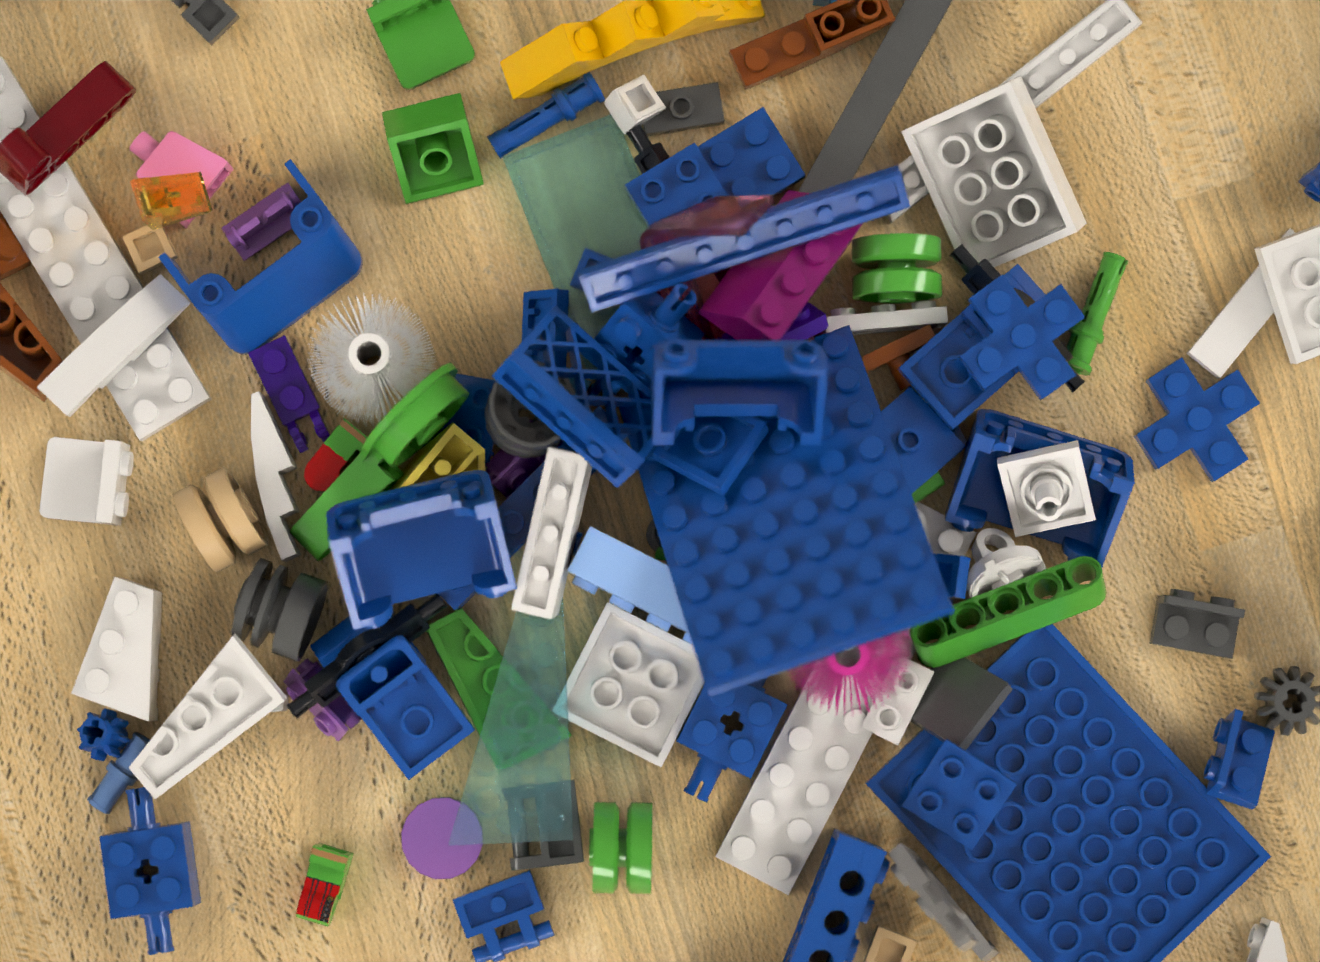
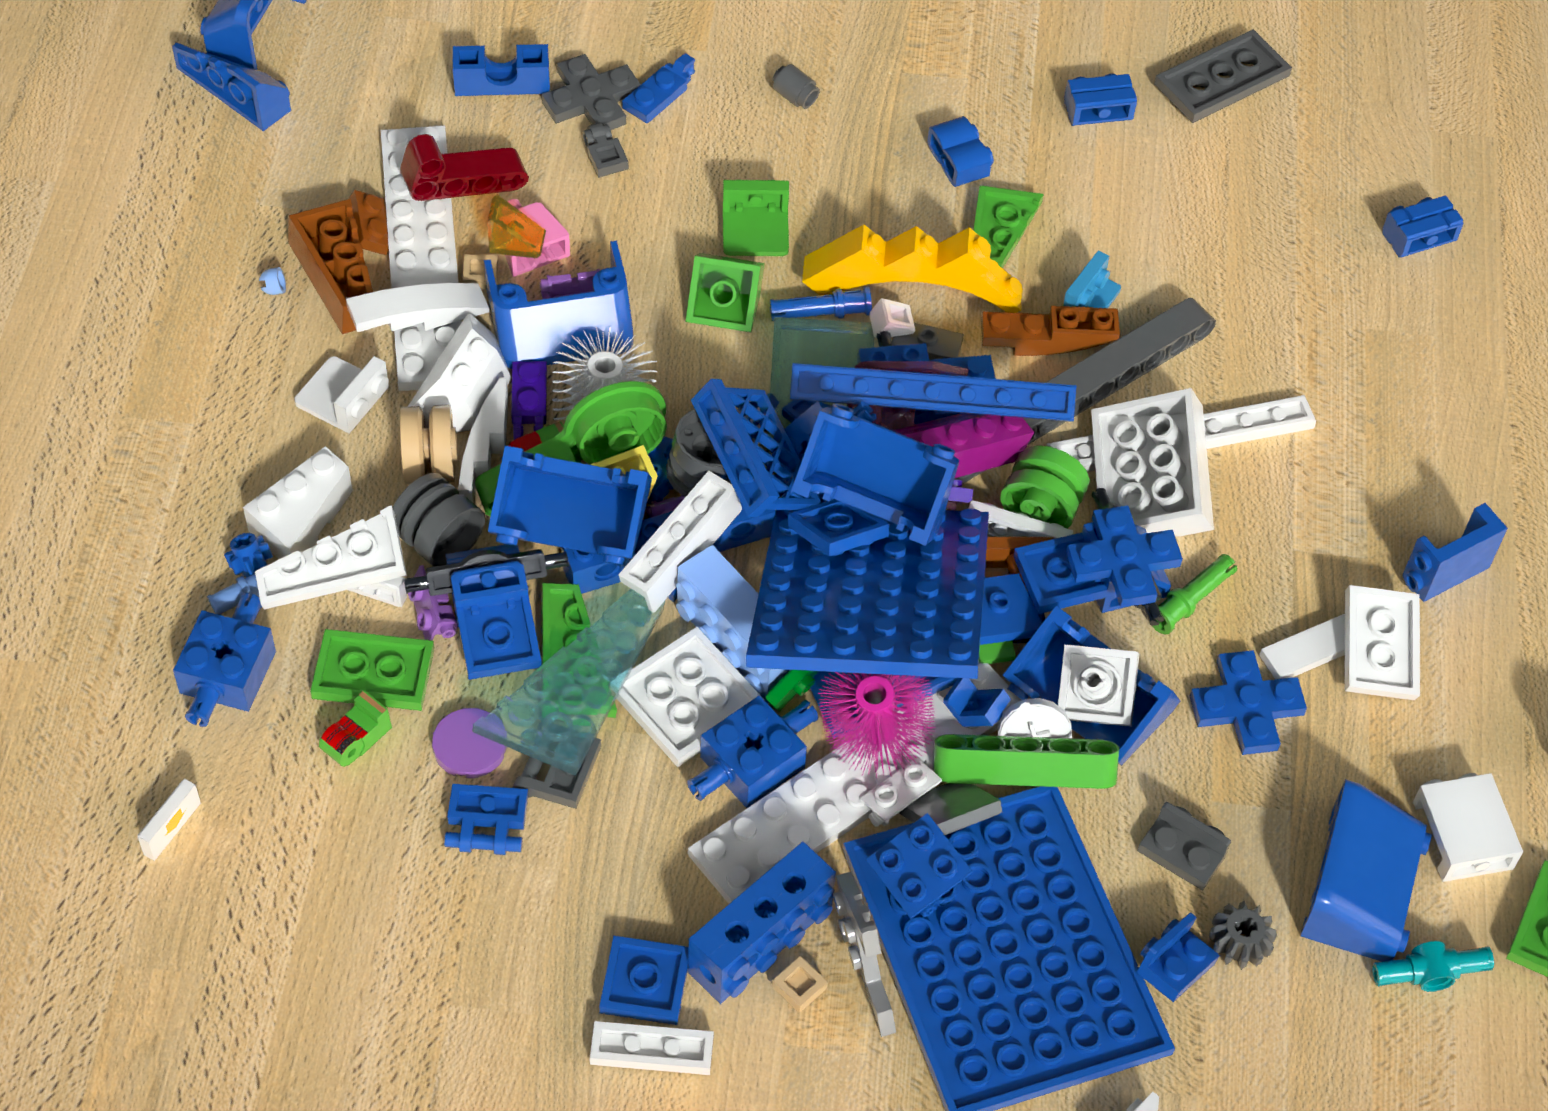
camera: 25 degrees right, 30 degrees down
(208, 406) = (463, 374): none -> white wedge
(303, 804) = (384, 666): none -> bright green plate
(621, 847) = (614, 794): bright green wheel -> none

